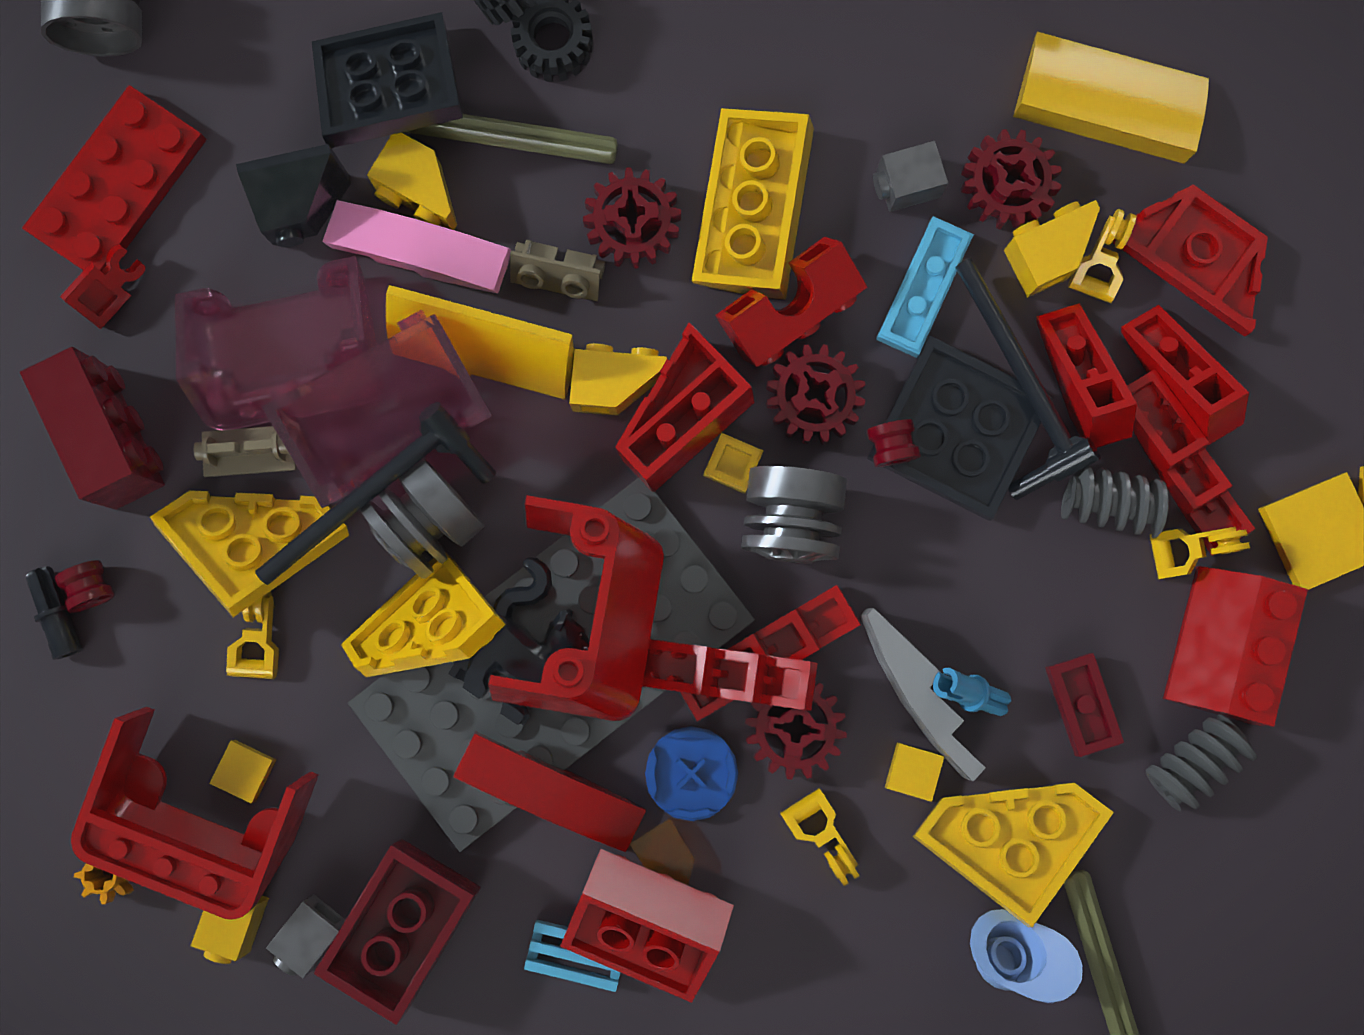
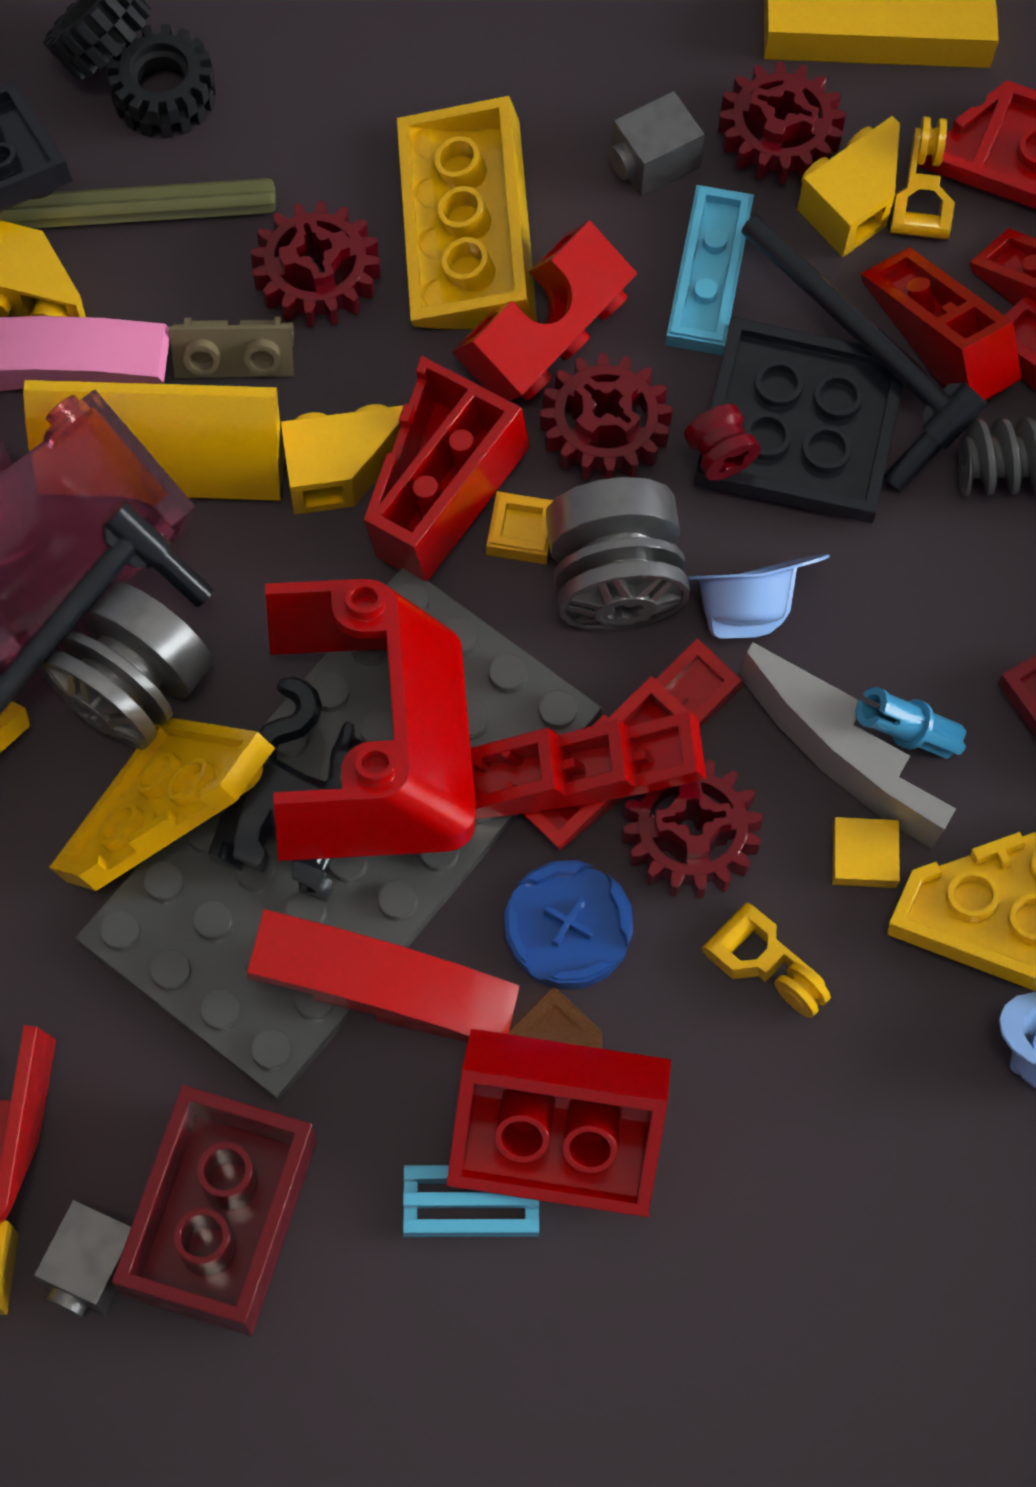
camera: 15 degrees left, 15 degrees down
(888, 560) = (750, 601): none -> light blue piece

